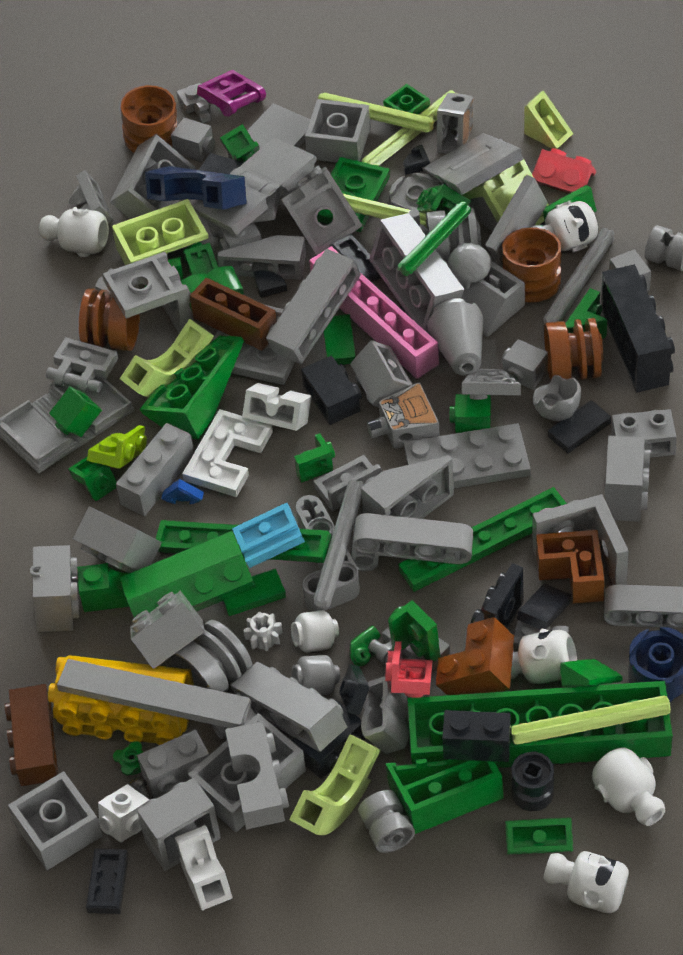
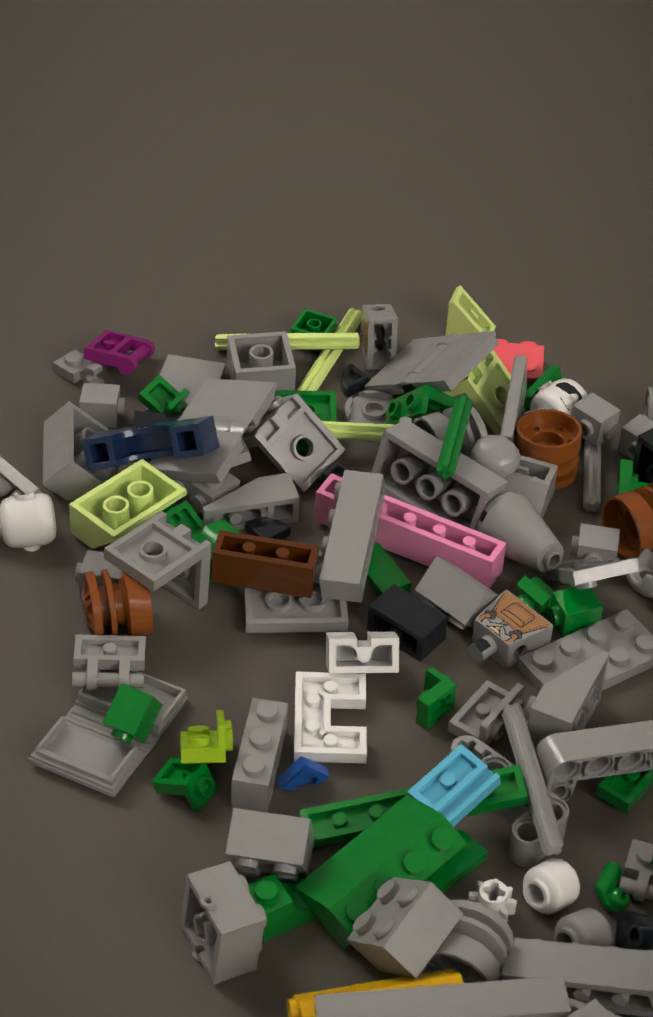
camera: 30 degrees left, 10 degrees down
(147, 112) = (42, 387): dark orange wheel -> none
(147, 375) = (217, 636): yellowish green arch -> none
(196, 391) = (258, 655): green wedge -> none
(444, 393) = (534, 593): none -> green bracket
(589, 245) = (597, 418): none -> light grey brick

